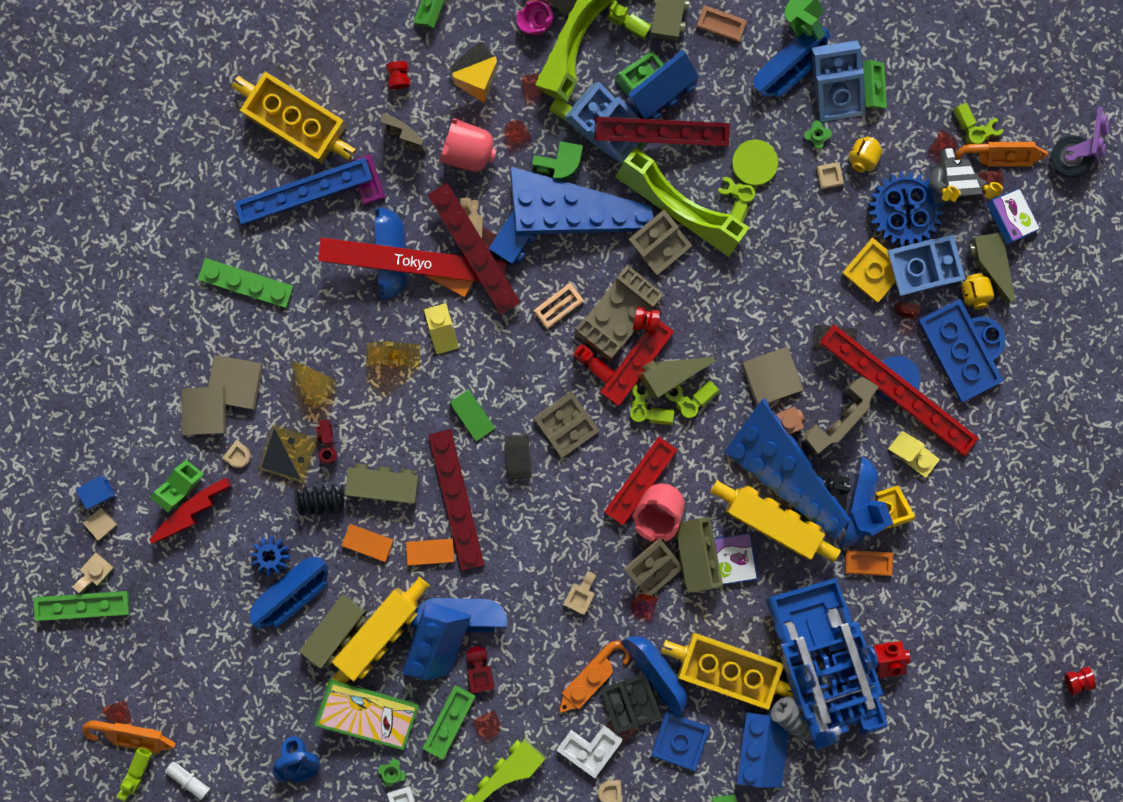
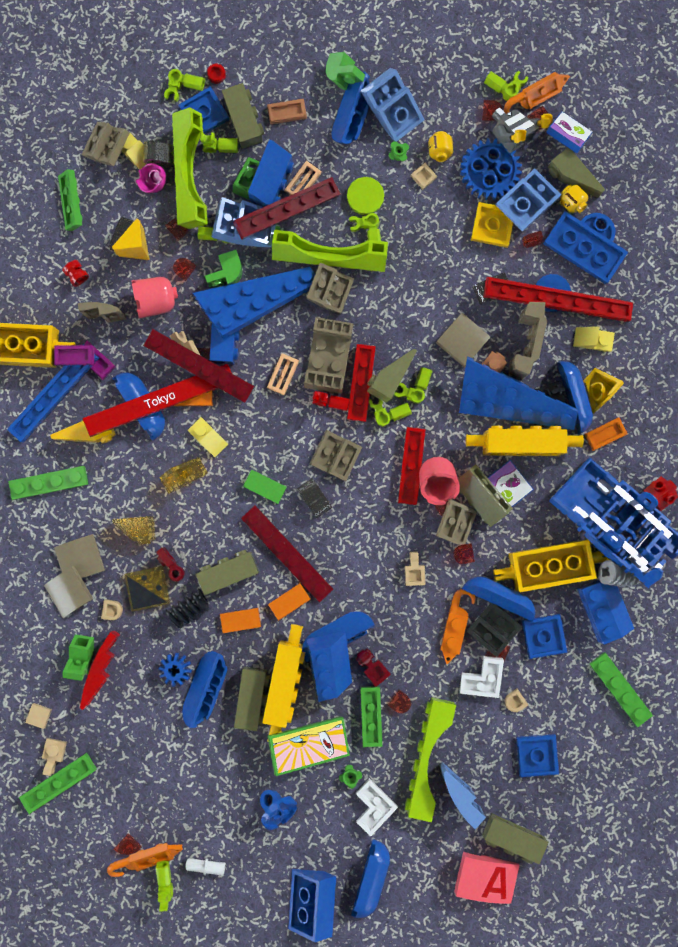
camera: 30 degrees left, 0 degrees up
(95, 492) = (22, 694): blue panel -> none
(309, 250) = (79, 433): none -> yellow slope
(348, 164) = (73, 355): none -> magenta tile
(651, 320) = (355, 347): red wheel -> none
(717, 109) = (312, 169): none -> light nougat tile
(871, 518) = (592, 399): blue panel -> none
(874, 85) = (420, 94): bright green plate -> none
(1075, 155) = (590, 64): plate -> none

